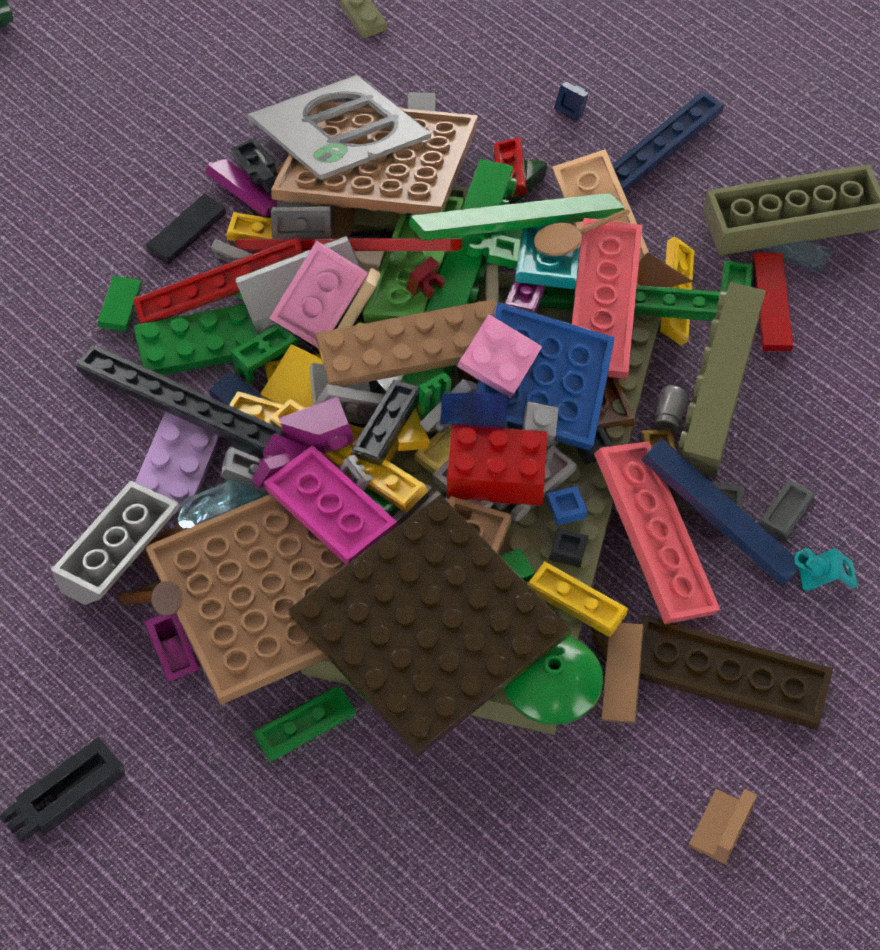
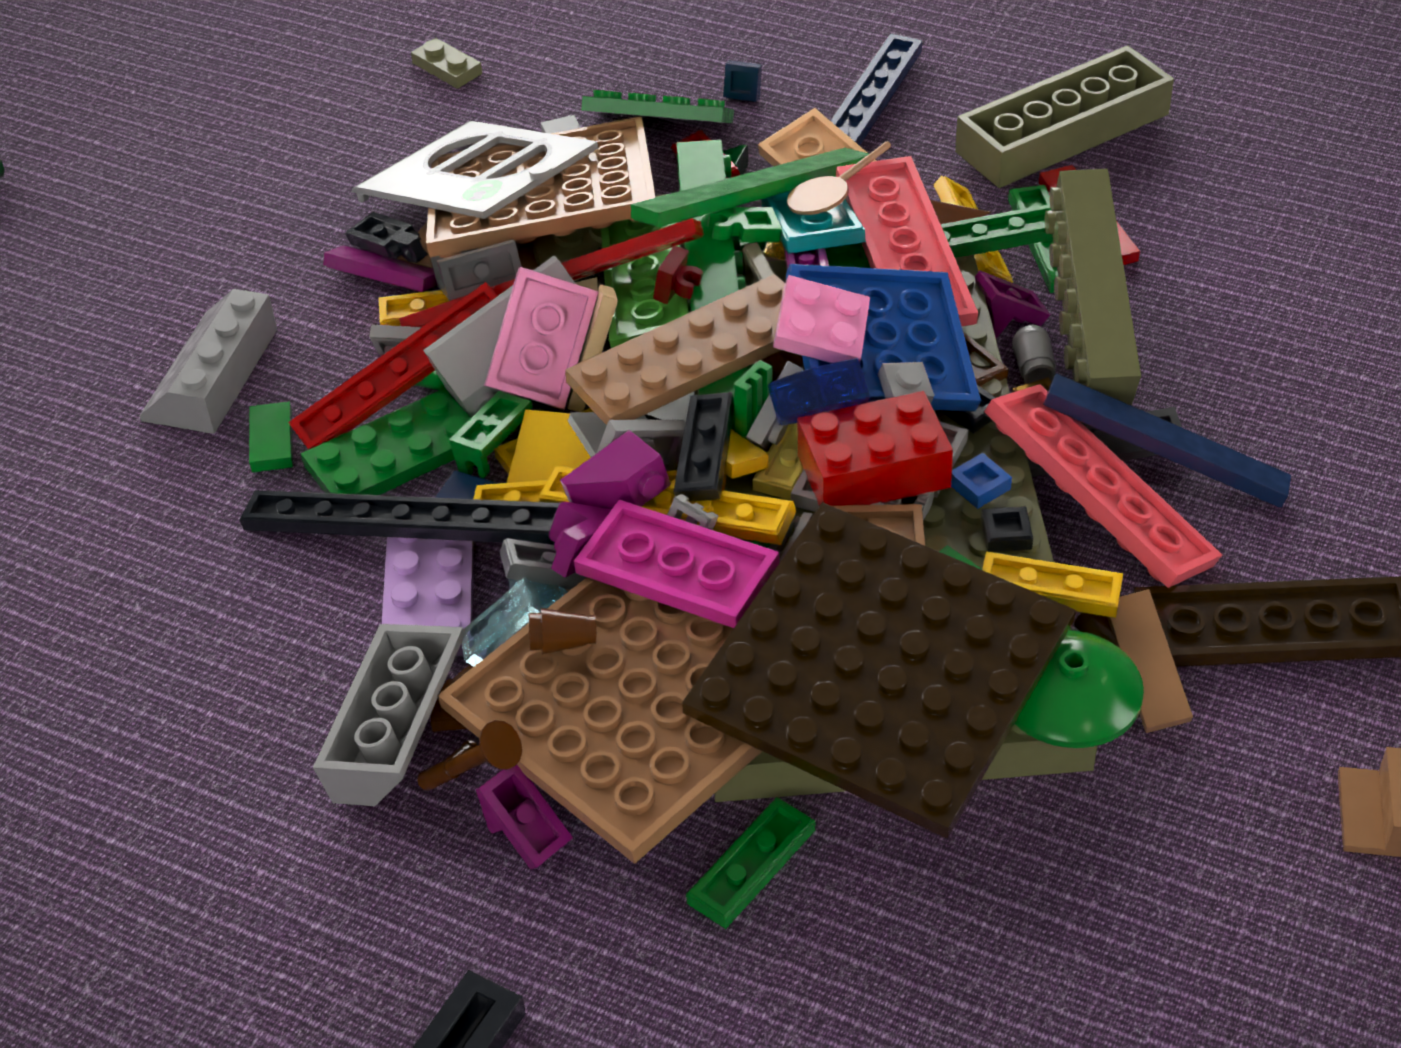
camera: 15 degrees left, 10 degrees down
(101, 232) = (214, 363): none -> light grey slope
(186, 229) = (323, 333): black tile -> none
(235, 529) = (560, 630): none -> reddish brown cone
(490, 107) = (646, 105): none -> green plate
(672, 359) = (1010, 302): none -> magenta slope
(786, 510) = (1235, 420): dark grey tile -> none
(804, 255) = (1098, 158): clear light blue tile -> none
(824, 568) = (1319, 471): teal bracket -> none

